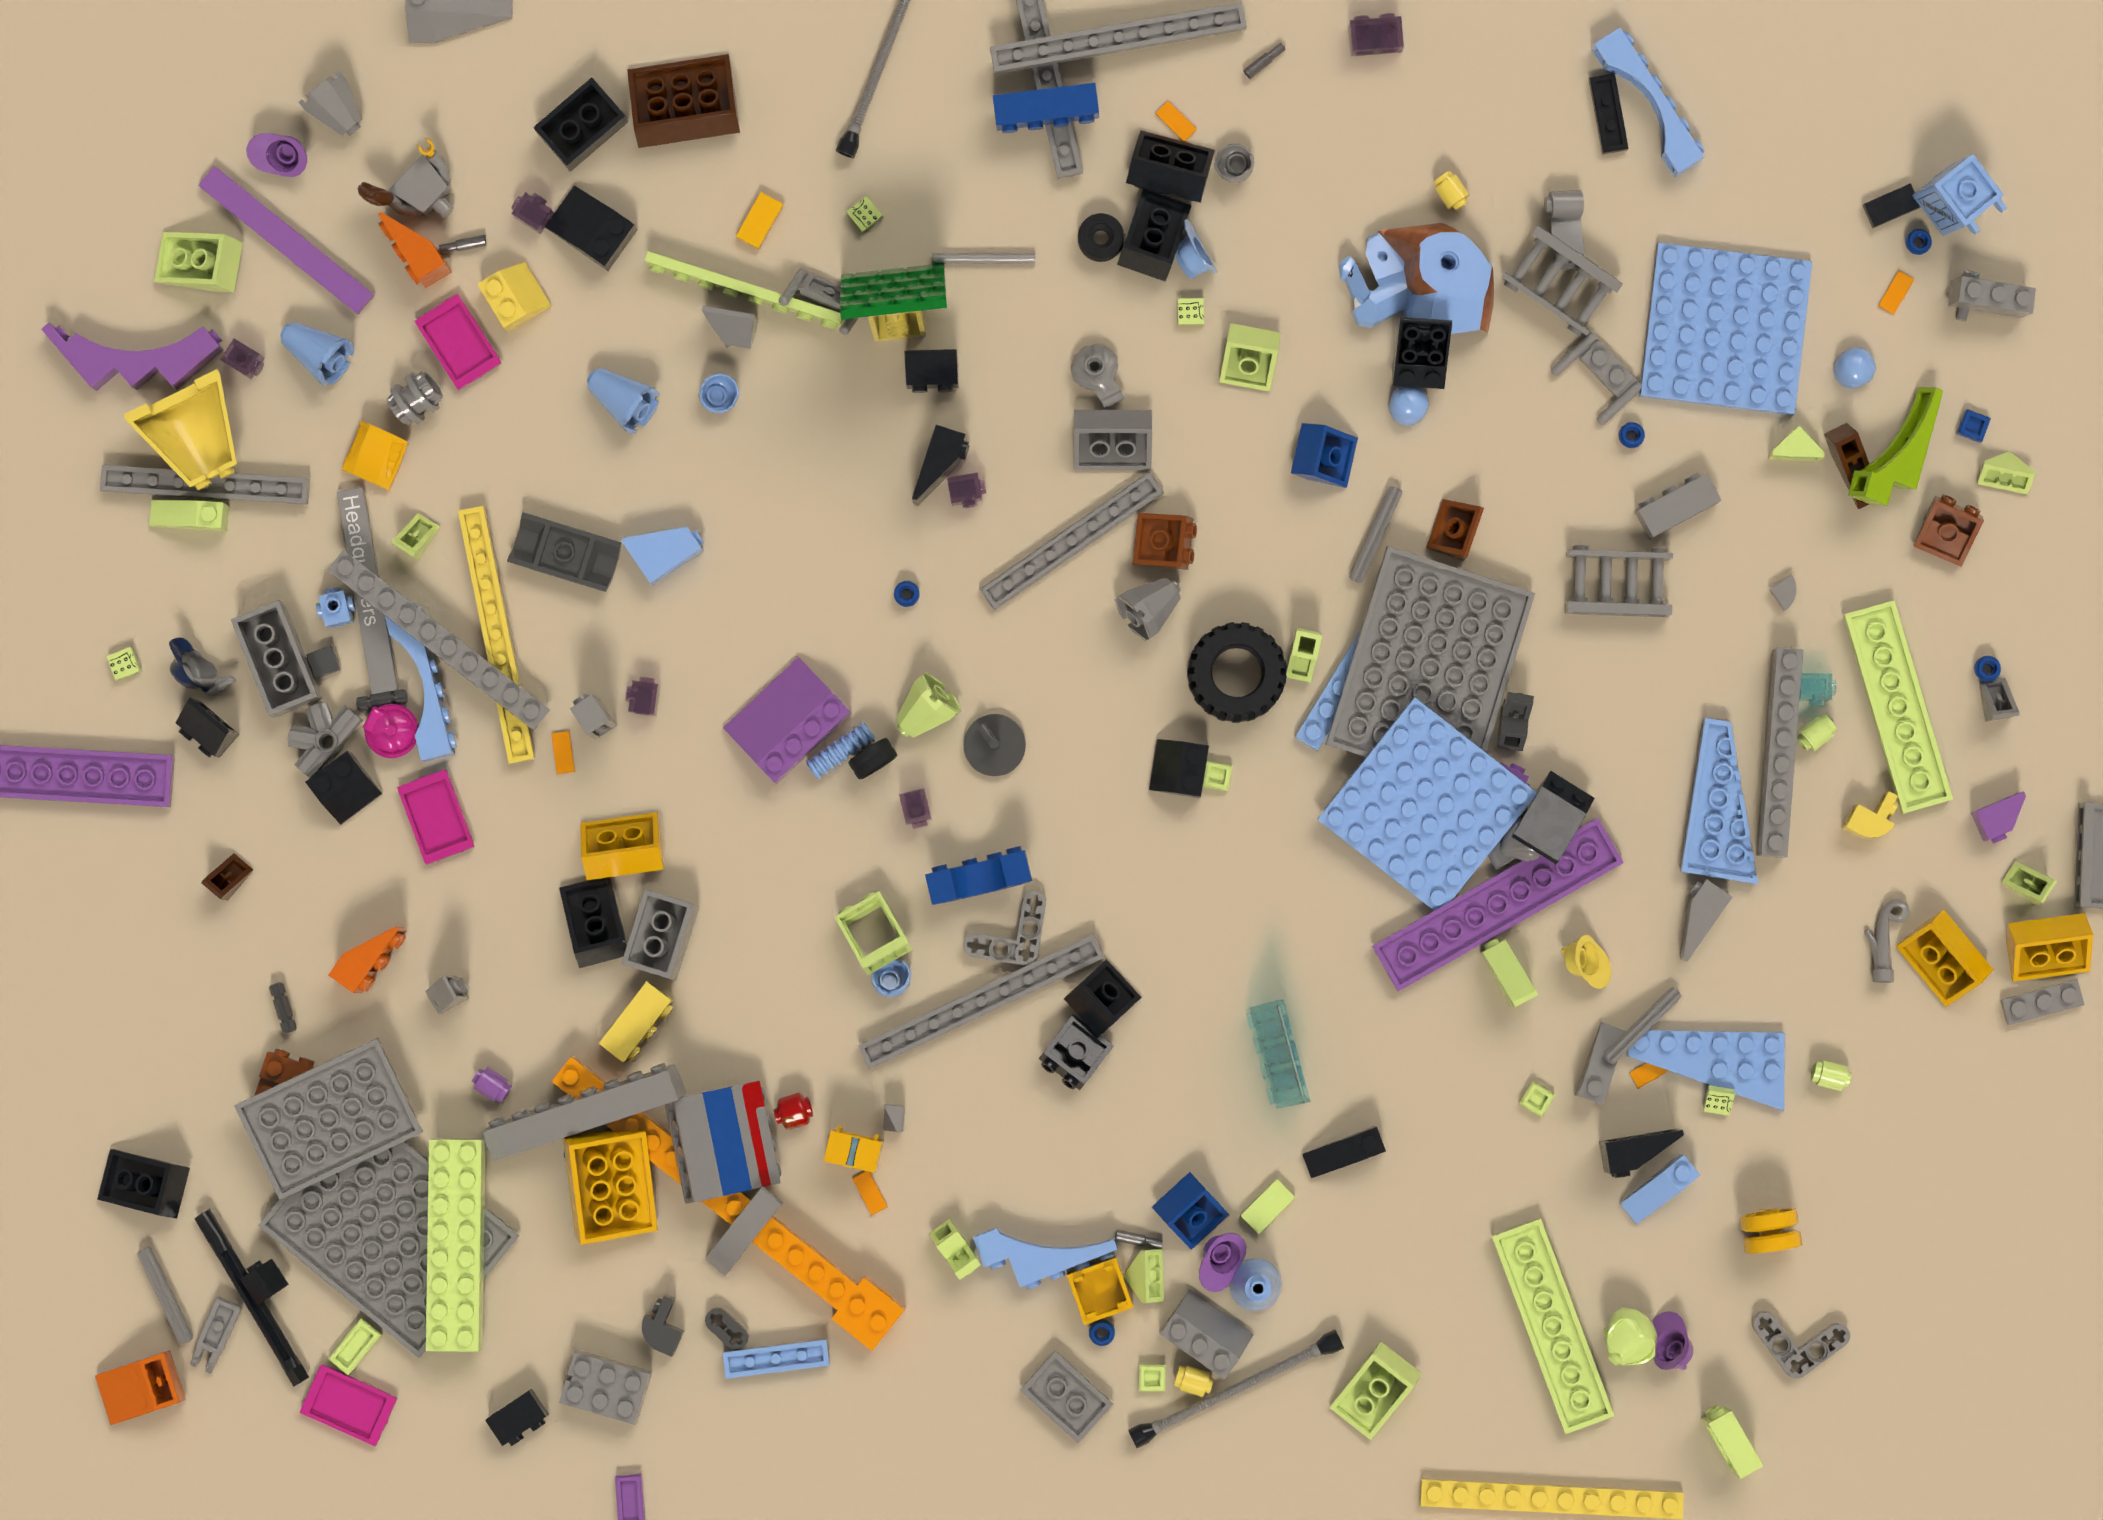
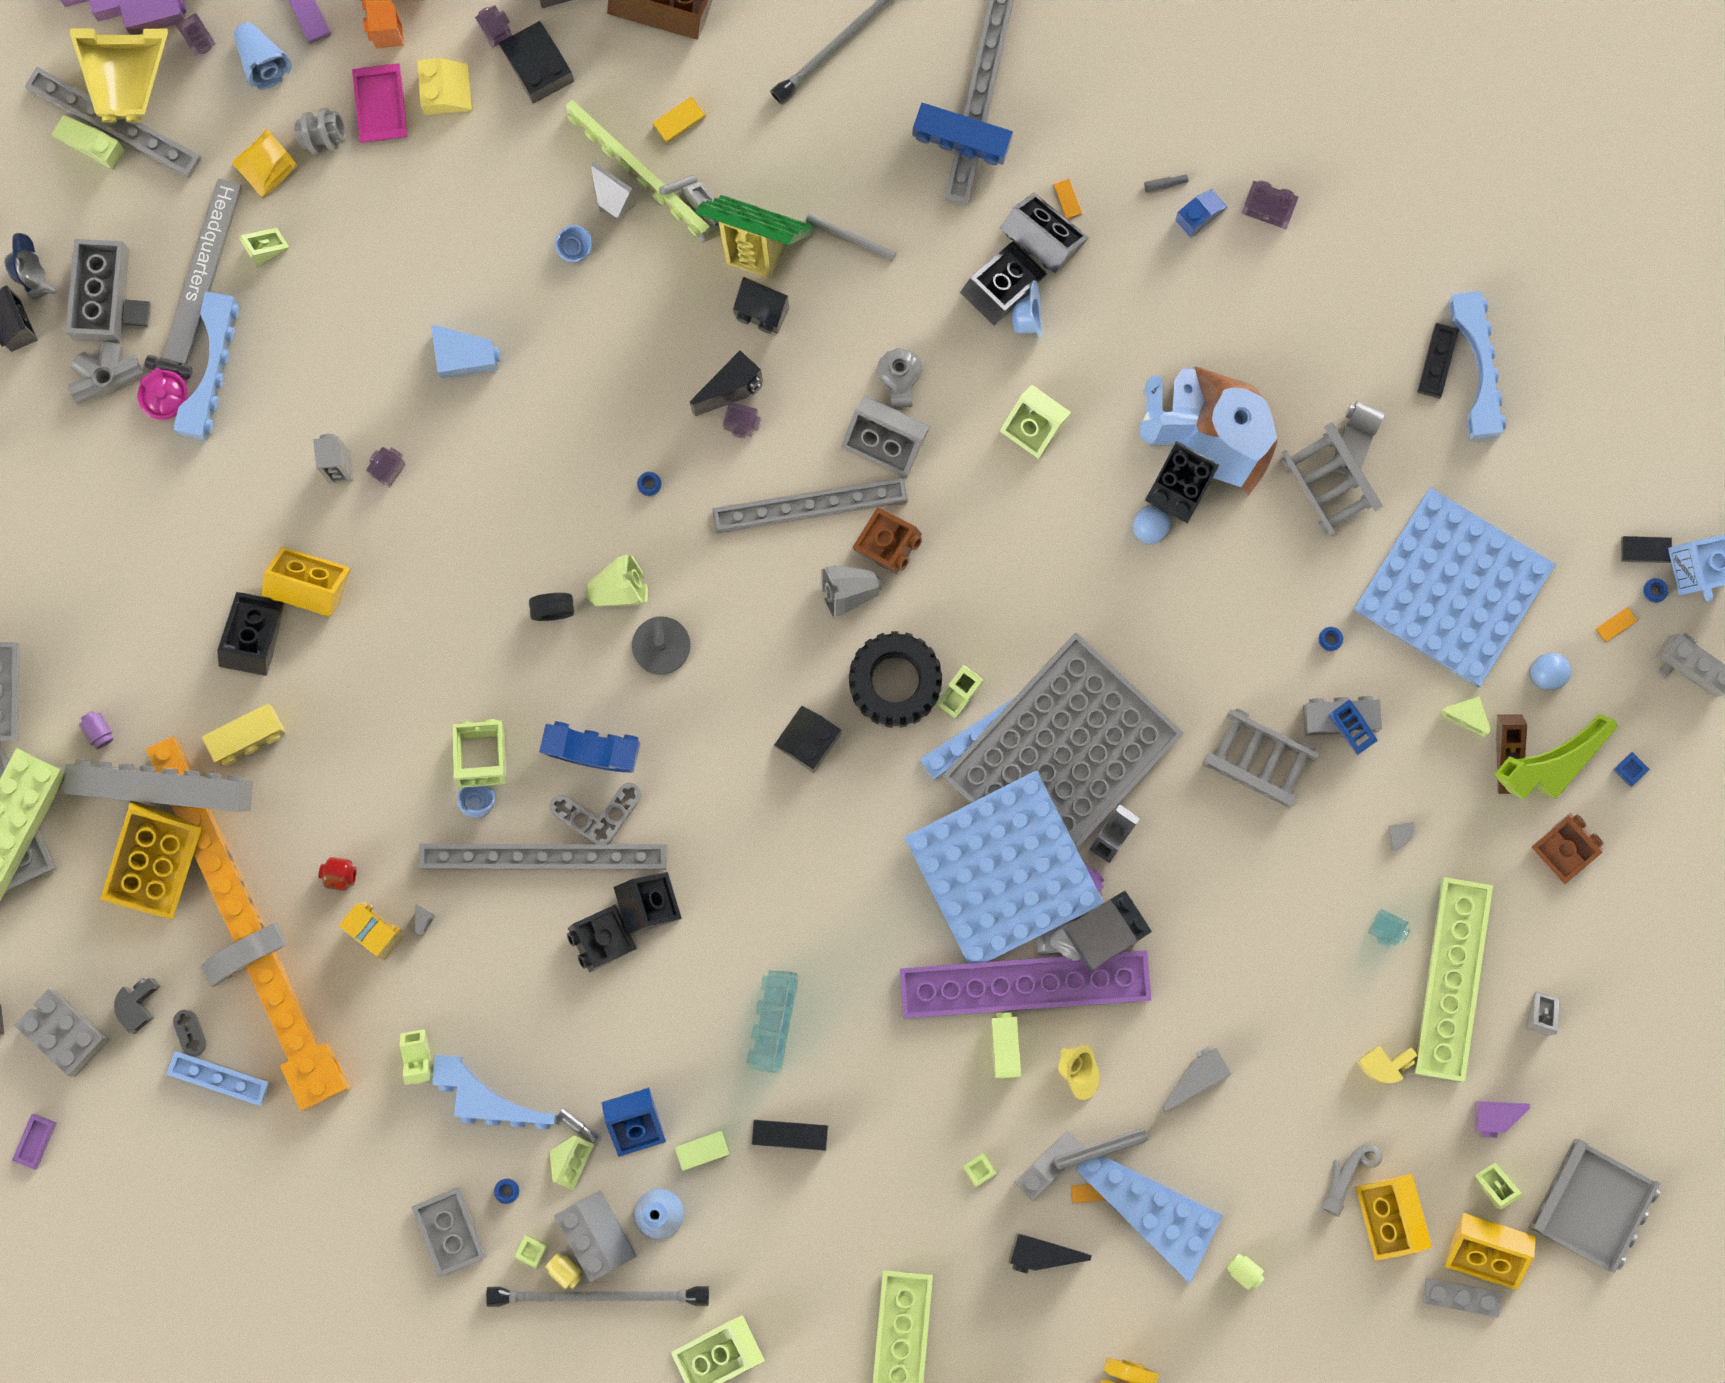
camera: 25 degrees right, 5 degrees down
(343, 613) = (168, 272): light blue brick -> none
(344, 787) = (99, 422): black slope -> none
(359, 965) = (40, 574): orange slope -> none
(436, 817) = (164, 484): dark pink piece -> none
(438, 640) = (238, 337): light grey plate -> none
(447, 993) = (97, 634): light grey slope -> none
(463, 244) = (423, 26): flat silver pin -> none
(494, 623) = (289, 357): light yellow plate -> none
(563, 752) = (297, 481): light orange window -> none
(565, 552) = (381, 316): dark grey piece -> none
(623, 398) = (493, 212): light blue cone -> none
(660, 934) = (299, 670): light grey slope -> none
(723, 1142) = (263, 869): panel -> none
(787, 720) = (496, 543): medium lavender slope -> none
(840, 750) = (528, 587): light blue piece -> none
(864, 214) = (768, 154): yellowish green tile -> none
(869, 1192) = (369, 975): light orange window -> none
(915, 808) = (567, 666): clear purple brick -> none
(1100, 1290) = (522, 1153): yellow container -> none
(1104, 223) = (953, 251): black tyre -> none
(1118, 38) = (1051, 106): light grey plate -> none
(1190, 311) = (1003, 361): yellowish green tile -> none
(1217, 776) = (837, 761): yellowish green tile -> none
(1221, 1260) = (637, 1178): medium lavender piece -> none
(1234, 163) = (1099, 254): light grey hair -> none
(1312, 74) = (1200, 212): none -> blue slope
(1324, 455) = (1059, 532): blue slope -> none
(1376, 534) = (1071, 620): light grey axle -> none
(1451, 191) = (1273, 362): light yellow brick -> none
(1455, 528) = (1141, 646): dark orange slope -> none
(1606, 369) = (1335, 574): light grey plate -> none
(1660, 1188) = (1049, 1299): light blue slope -> none
(1699, 504) = (1340, 724): none -> blue slope
(1718, 824) = (1249, 1005): light blue wing -> none
(1719, 1100) = (1137, 1246): yellowish green tile -> none
(1779, 752) = (1331, 969): light grey brick -> none
(1816, 733) = (1371, 968): yellowish green brick -> none
(1995, 668) = (1555, 983): blue plate -> none
(2007, 473) = (1642, 823): yellowish green slope -> none

